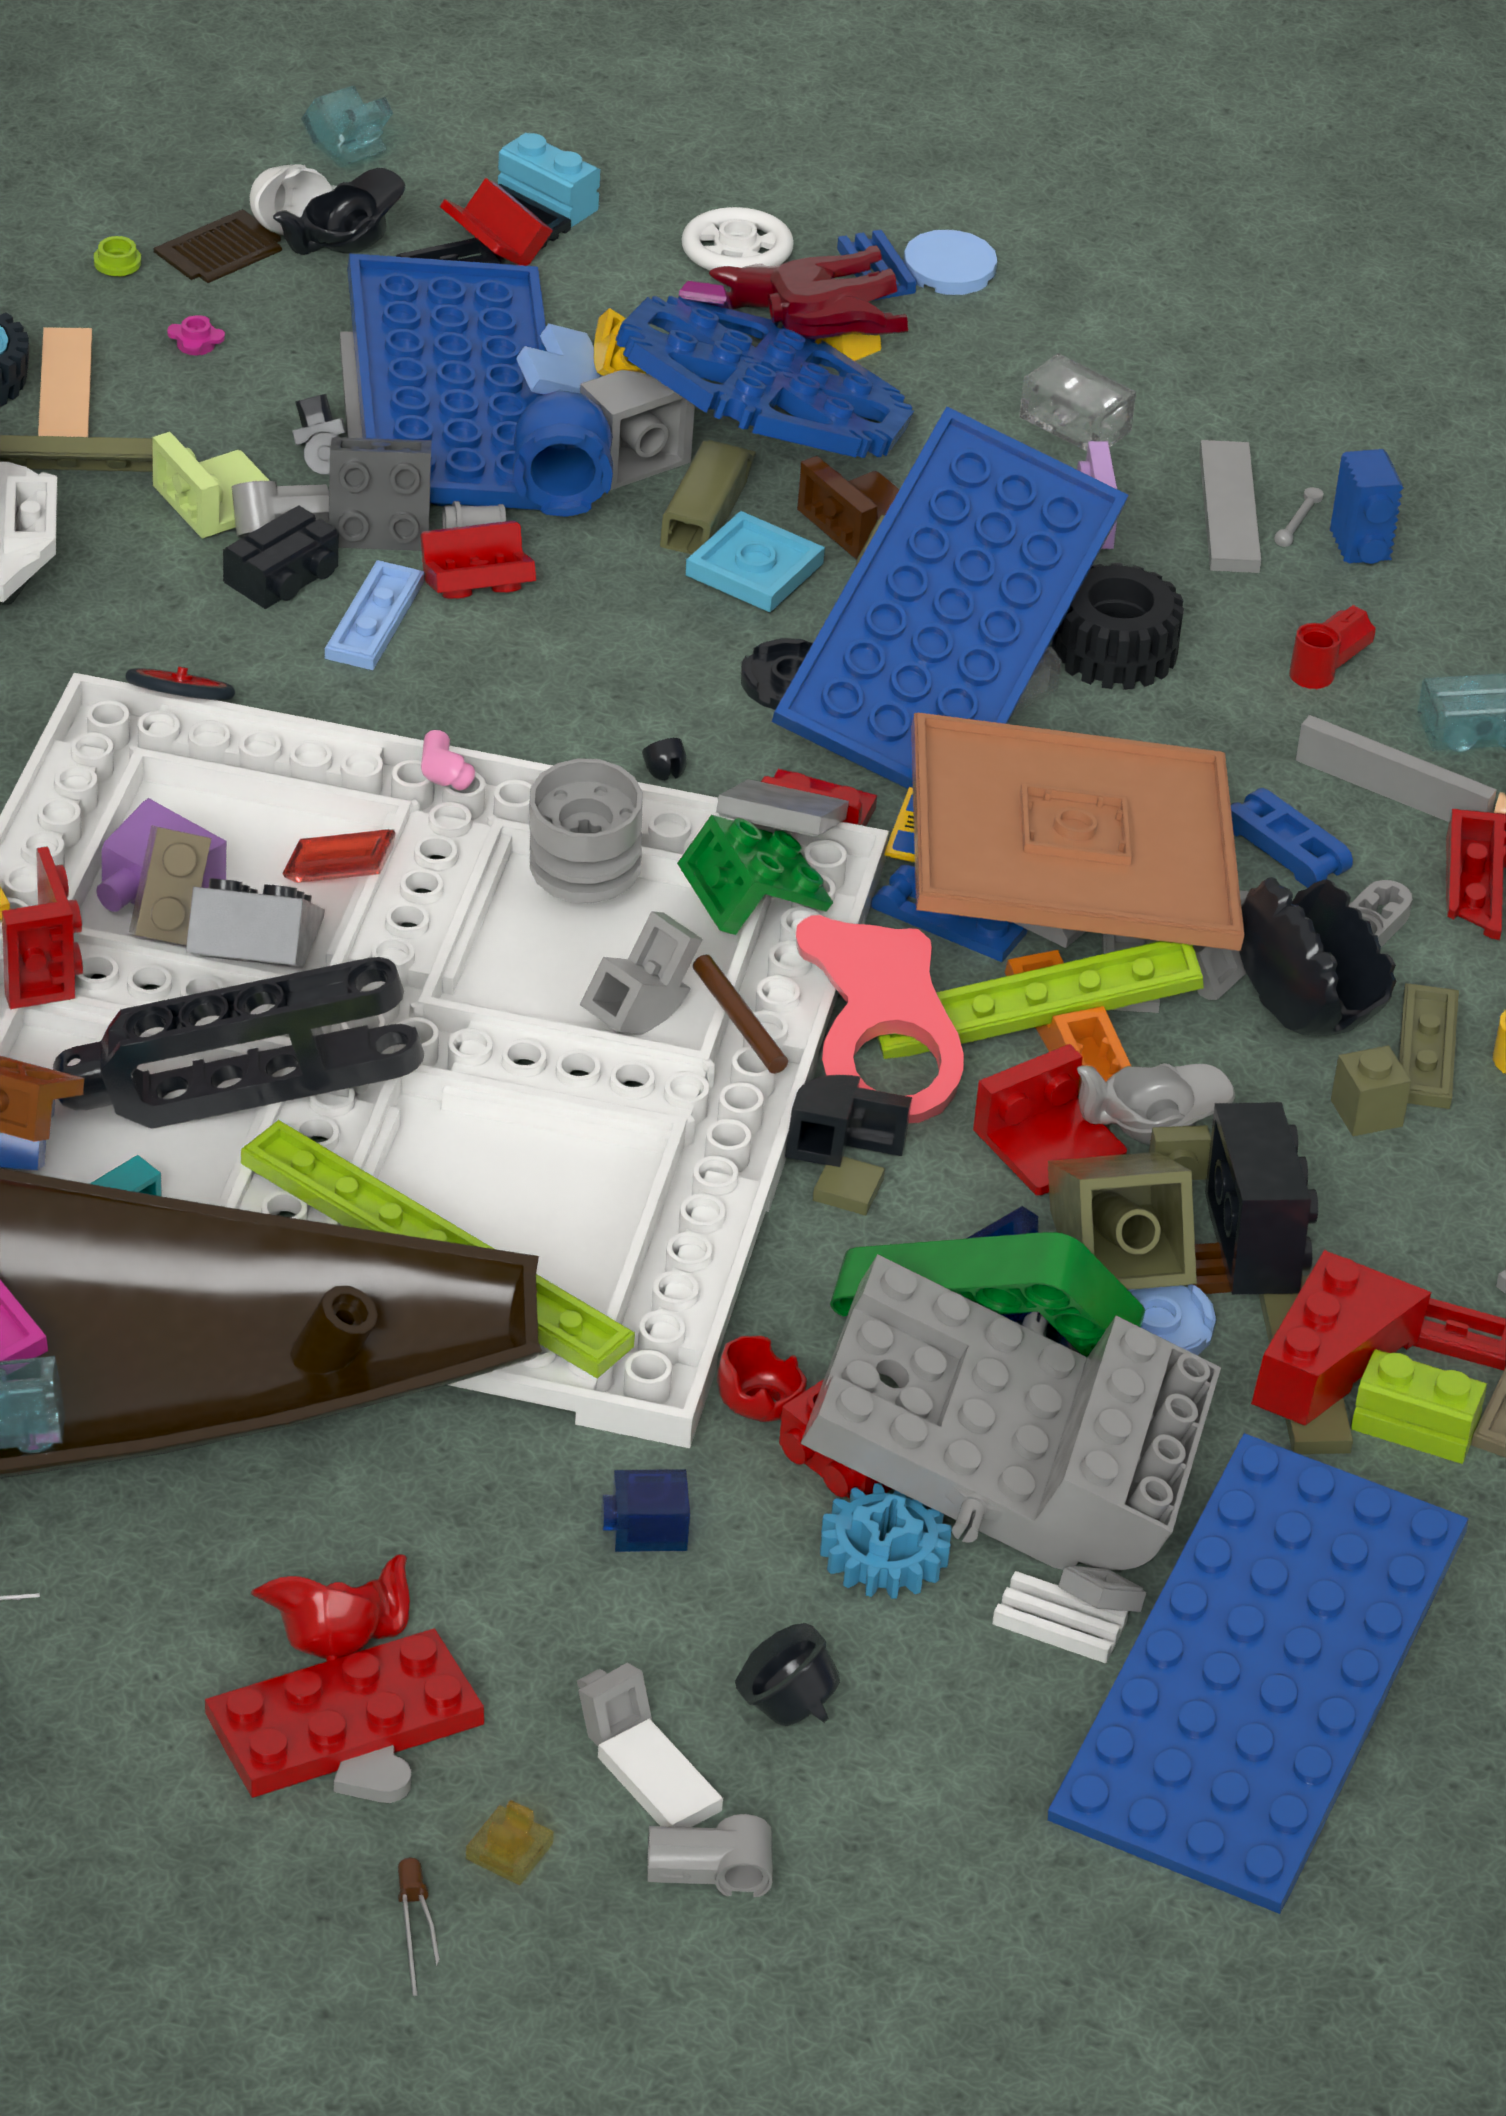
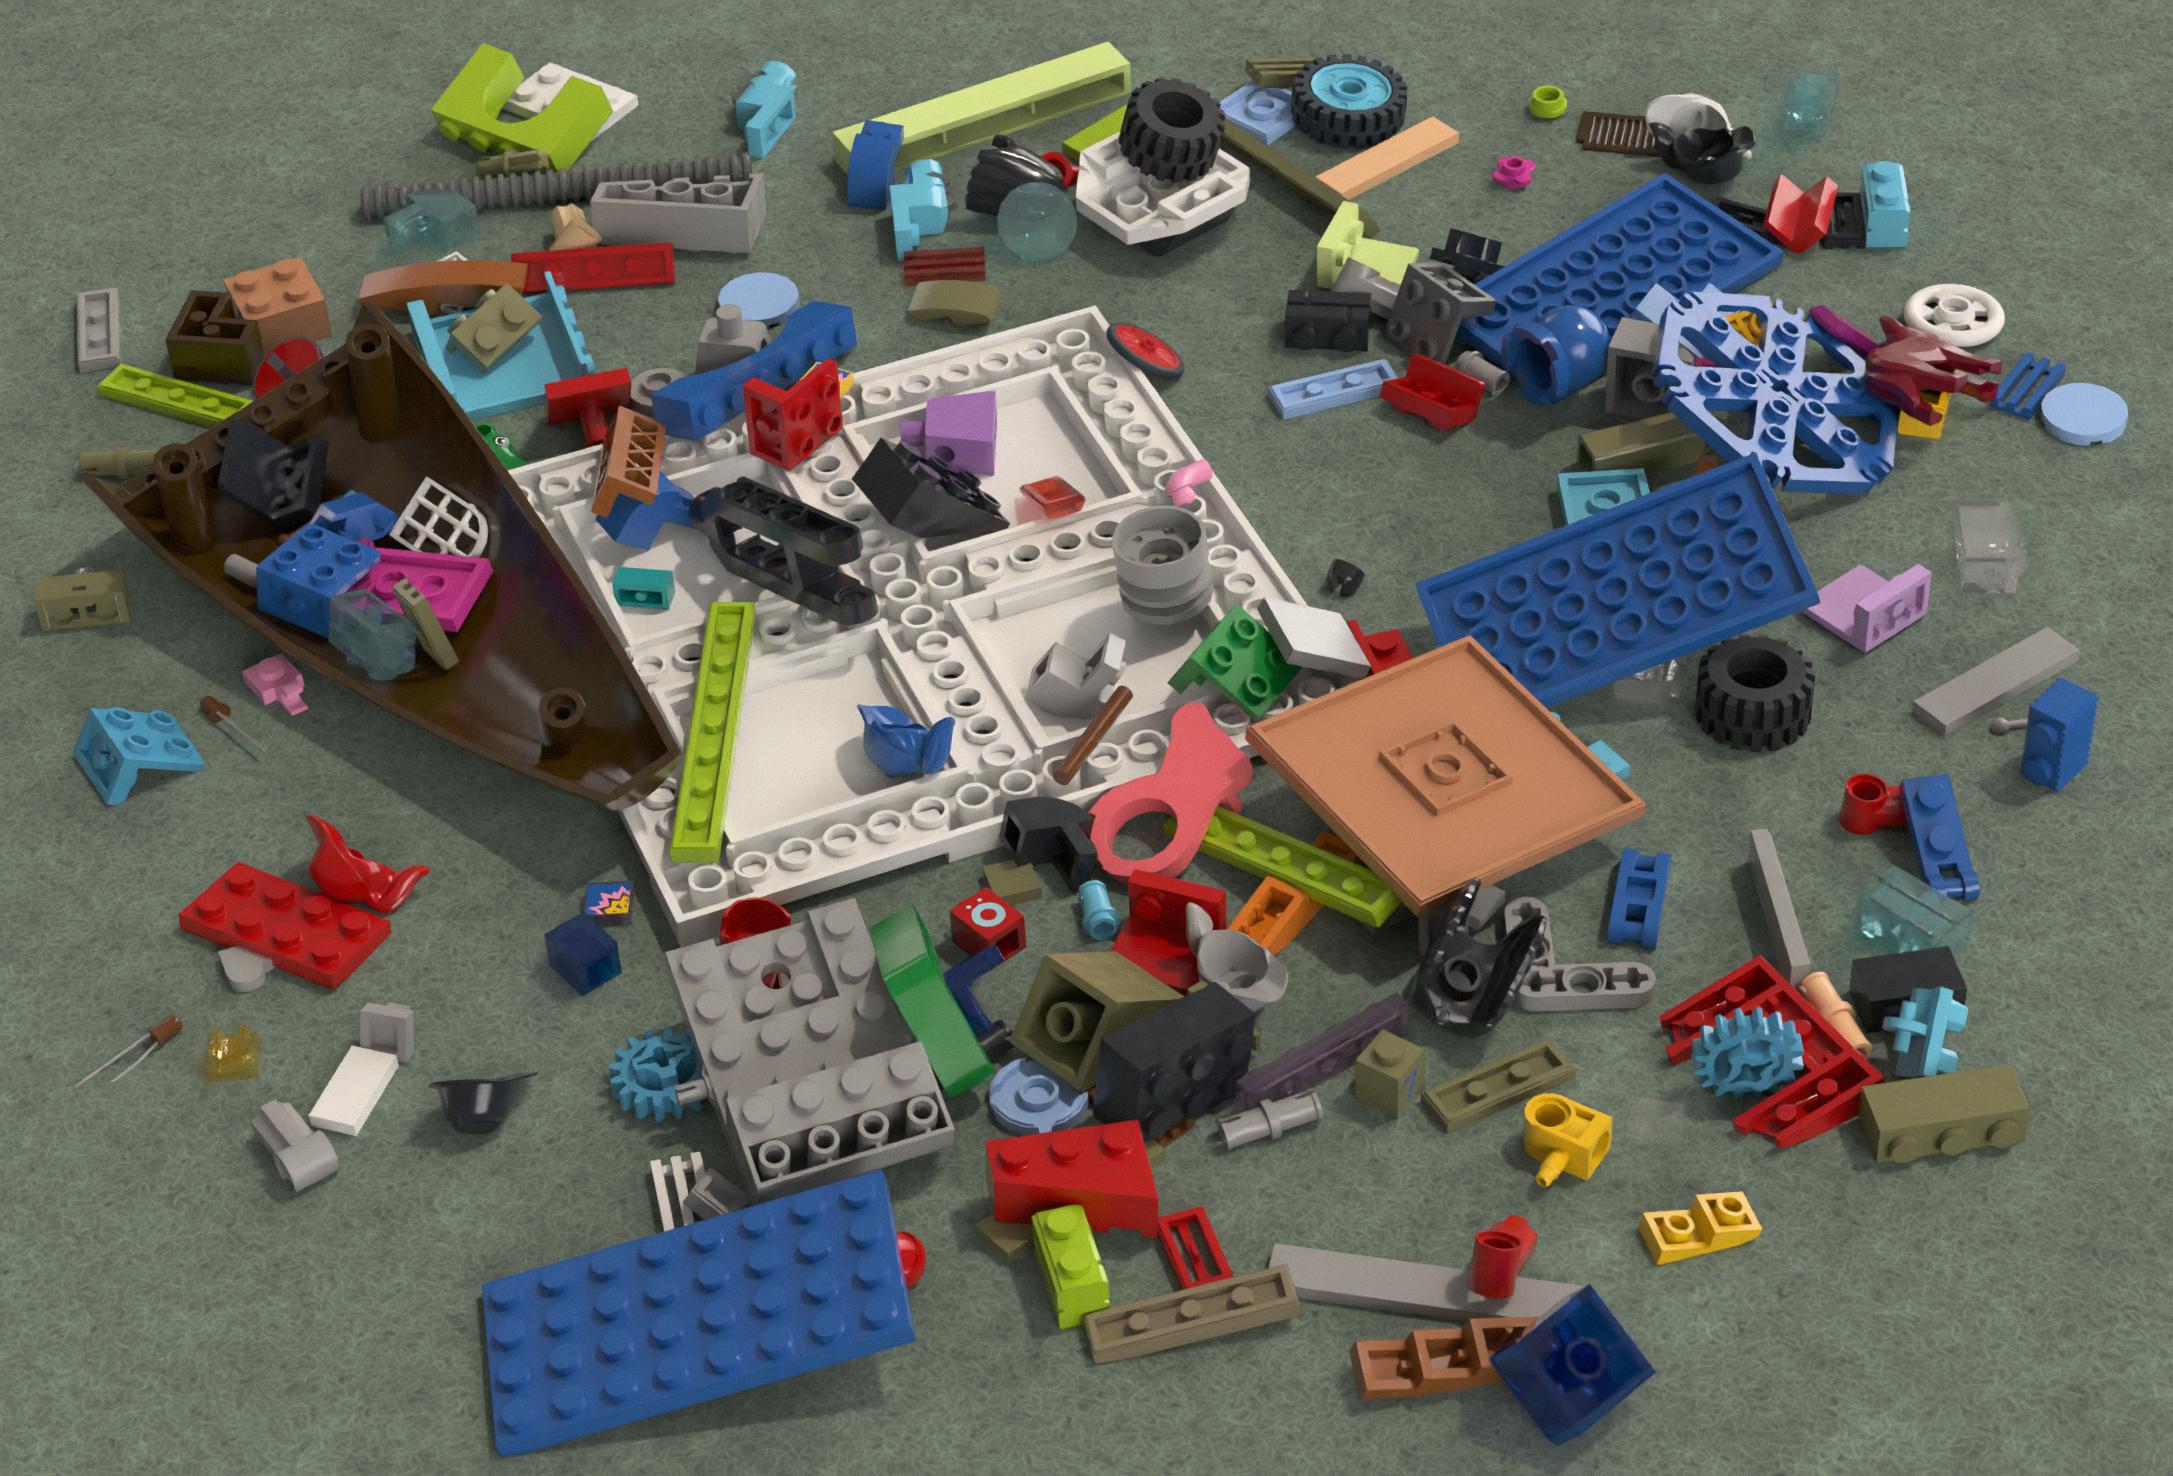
camera: 60 degrees right, 0 degrees up
(44, 1332) = (427, 626): none -> olive tile
(164, 895) = (921, 422): dark tan brick -> none
(577, 1462) = (610, 902): none -> tile
(614, 1141) = (900, 745): none -> blue hair
(911, 1217) = (987, 921): none -> red brick
(955, 1150) = (1099, 917): none -> medium azure pin
(1301, 1102) = (1322, 1056): none -> clear purple plate
(1341, 1193) = (1270, 1119): none -> light grey pin
(1402, 638) = (1938, 835): none -> blue plate

